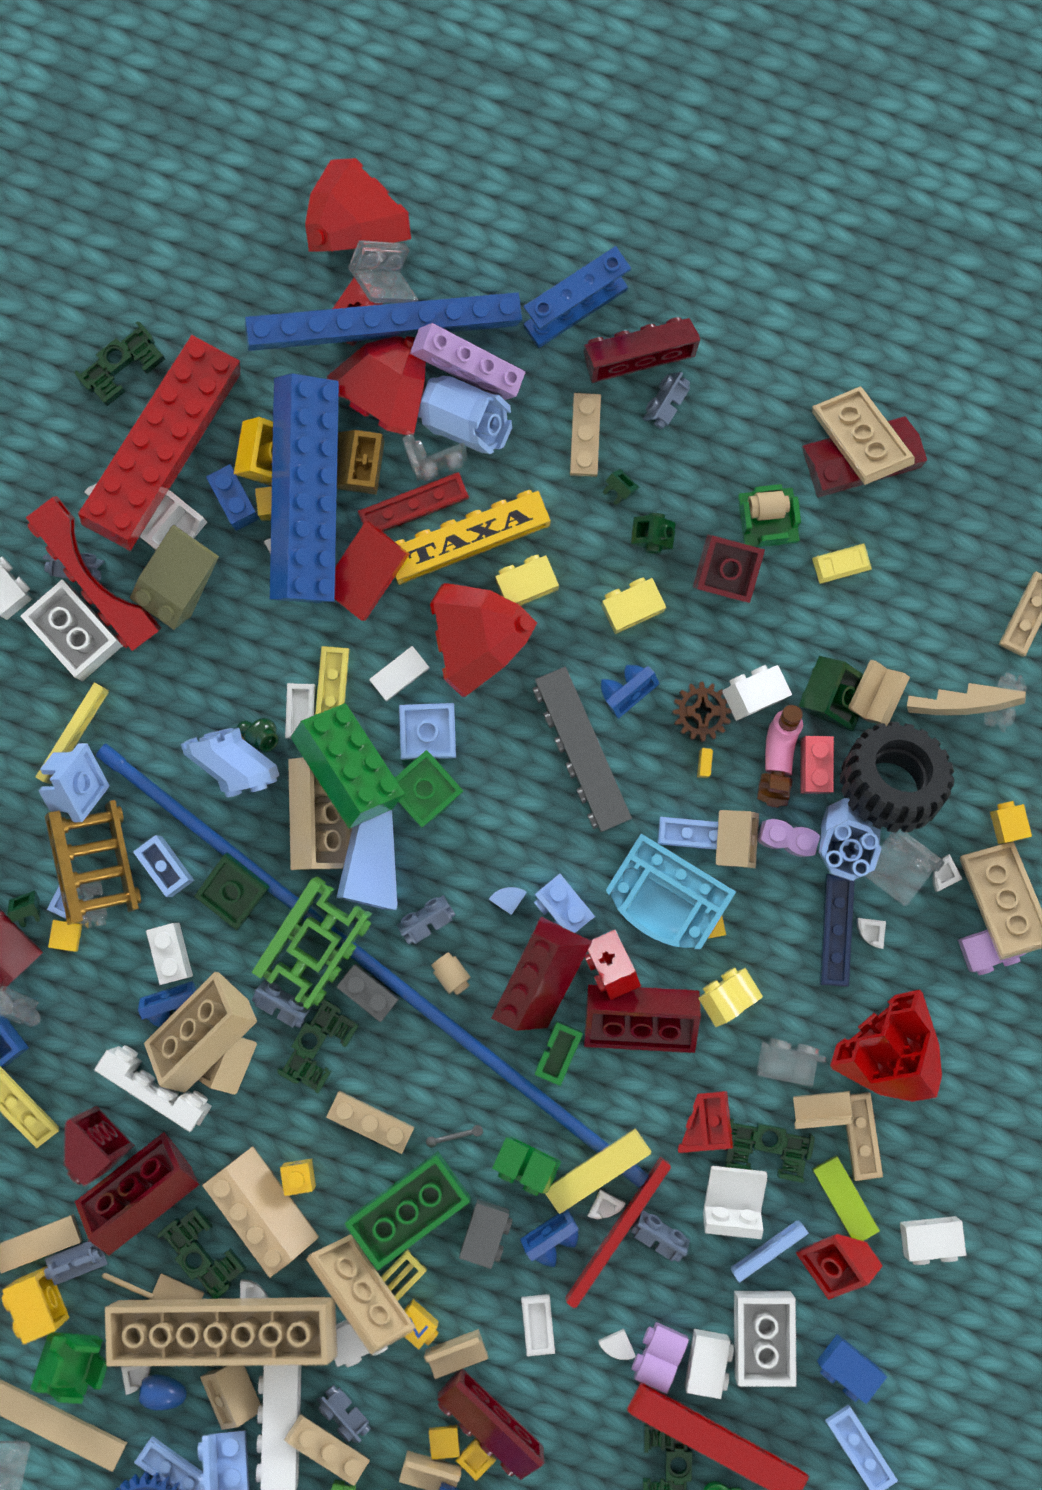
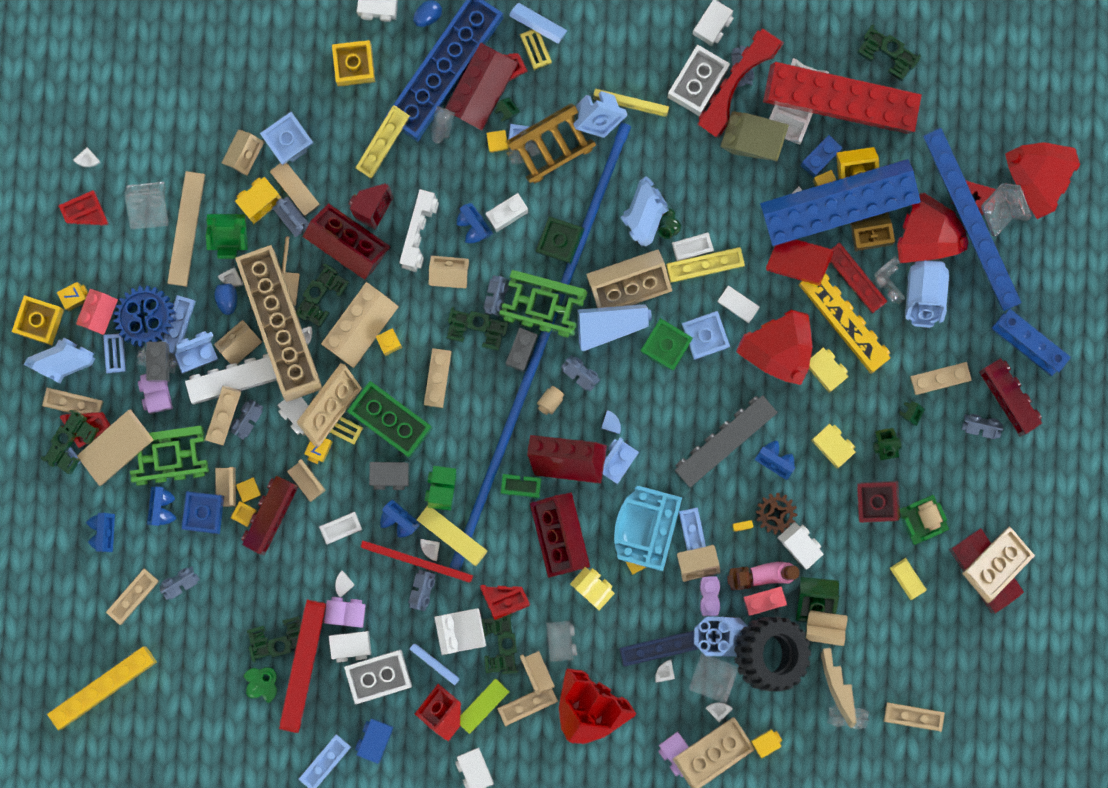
camera: 80 degrees right, 0 degrees up
(163, 866) = (562, 190): light blue brick -> none
(199, 1033) = (462, 248): tan slope -> none
(347, 765) = (666, 288): green brick -> none
(467, 361) = (961, 283): lavender brick -> none
(477, 1131) = (437, 422): dark grey hinge -> none
(612, 965) = (589, 504): brick -> none

